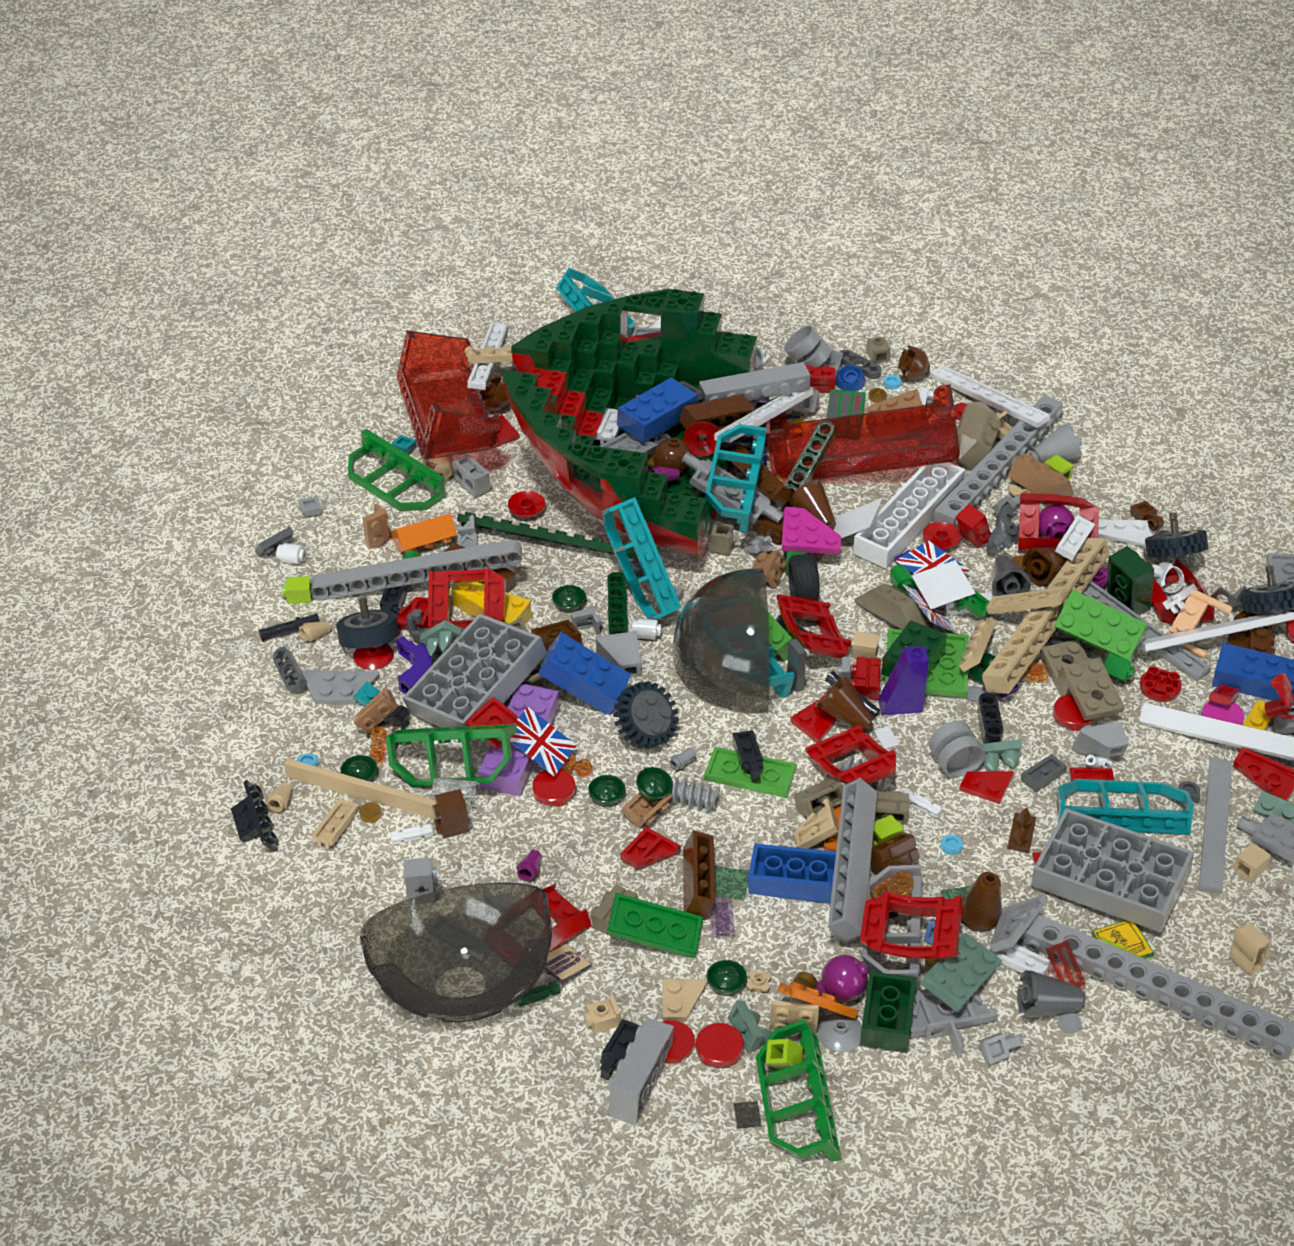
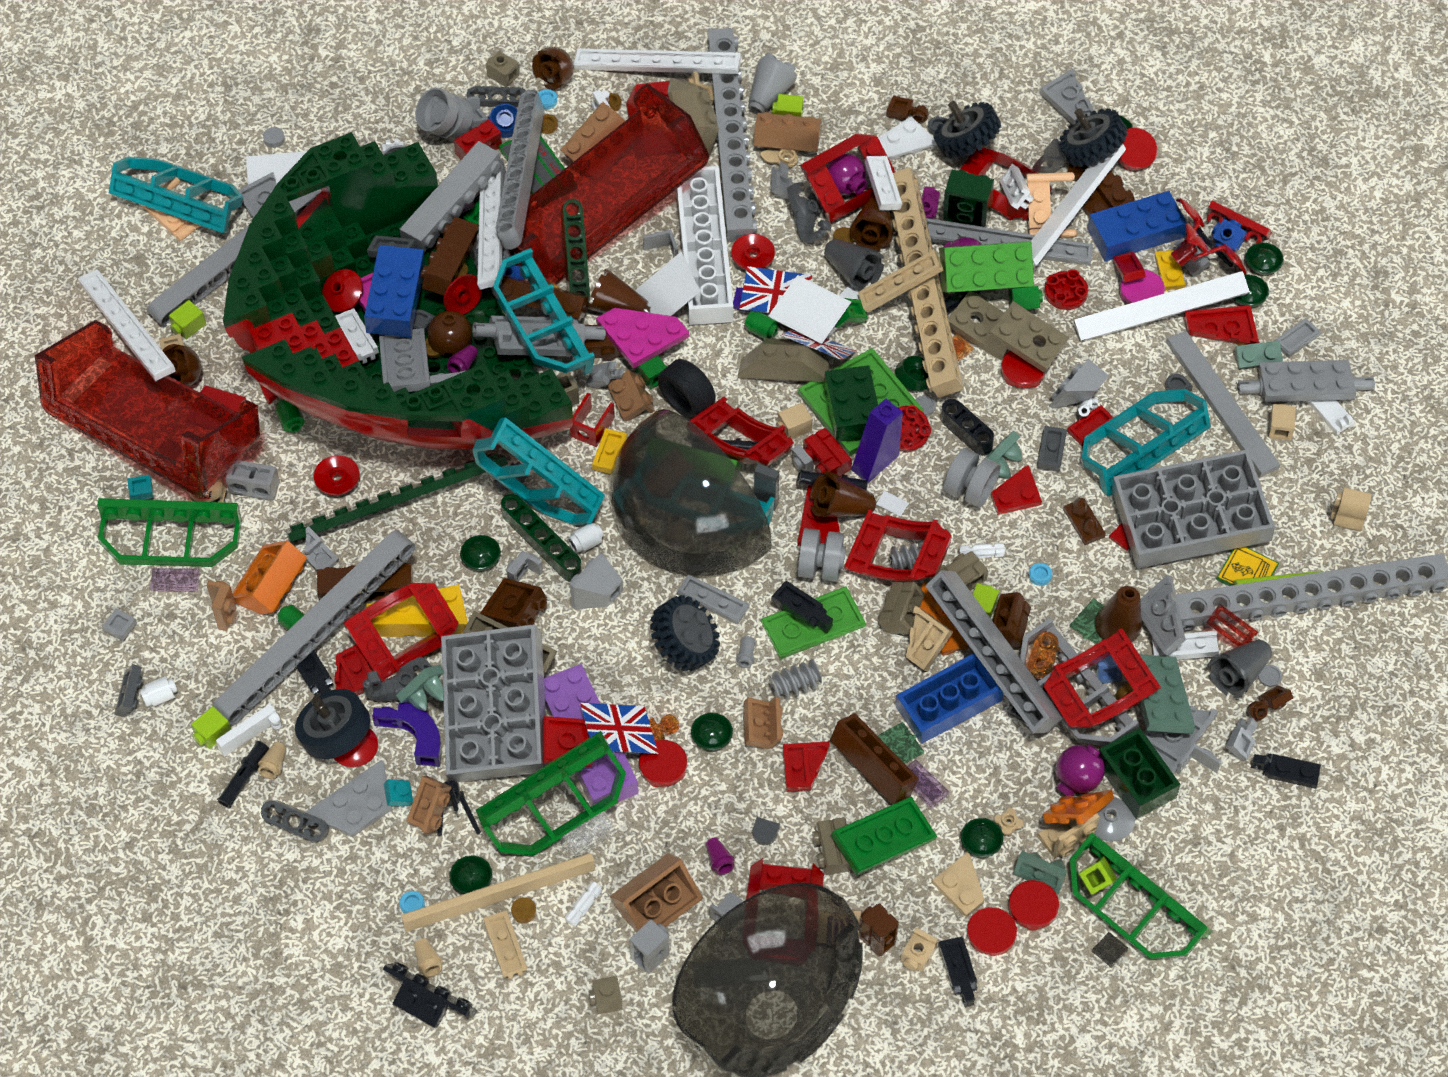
camera: 40 degrees left, 15 degrees up
(318, 604) = (248, 729): none -> white hinge
(363, 893) = (606, 995): none -> dark tan brick
(366, 502) = (175, 580): none -> clear purple tile
(377, 749) = (467, 841): clear orange plate -> none
(450, 814) = (609, 859): reddish brown brick -> none
(463, 860) = (657, 894): none -> medium nougat slope
(488, 355) = (138, 324): tan plate -> none
(531, 460) = (289, 416): none -> green brick
(578, 872) = (765, 831): none -> dark grey tile
(584, 673) = (591, 629): blue brick -> none
(584, 977) = (878, 929): none -> reddish brown brick
(627, 394) = (347, 295): none -> red dish
(639, 1070) = (1002, 977): light grey wedge -> none
(654, 783) = (757, 698): dark green hat -> none
(695, 716) = (714, 599): none -> light grey tile
(721, 562) = (595, 434): none -> red piece
(793, 728) = (827, 556): none -> light grey wheel
(805, 979) = (1047, 795): pearl gold tile -> none
(820, 398) = (520, 170): none -> light grey beam
(877, 492) = (660, 239): none -> light grey bracket
(943, 695) = (914, 428): none -> red tile
(973, 526) = (780, 225): red brick -> none
(977, 643) = (892, 354): tan plate -> none
(1017, 1093) = (1287, 769): none -> black hinge
(1053, 1037) = (1274, 698): none -> reddish brown plate
(1161, 571) = (981, 167): white piece -> none

